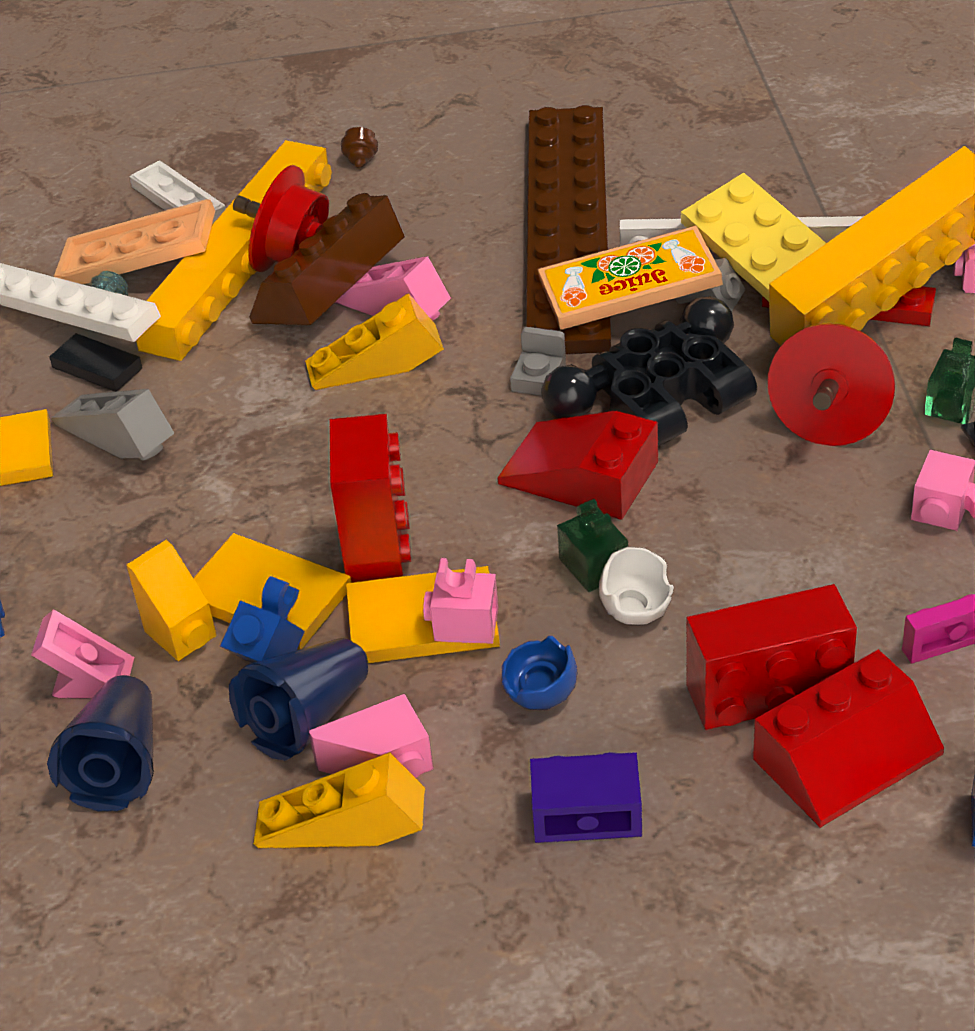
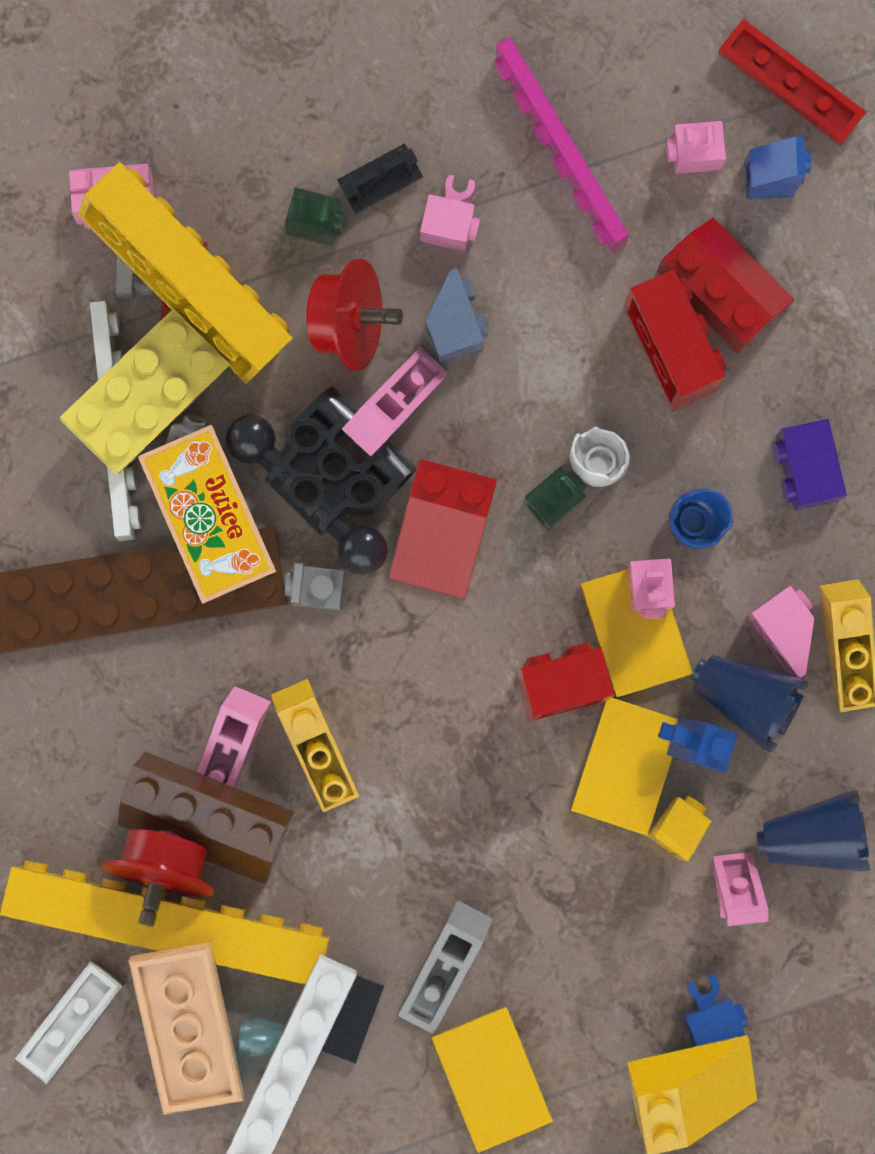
camera: 105 degrees left, 40 degrees up
(731, 419) = (395, 401): none -> bright pink slope
(825, 484) = (452, 323): none -> sand blue slope

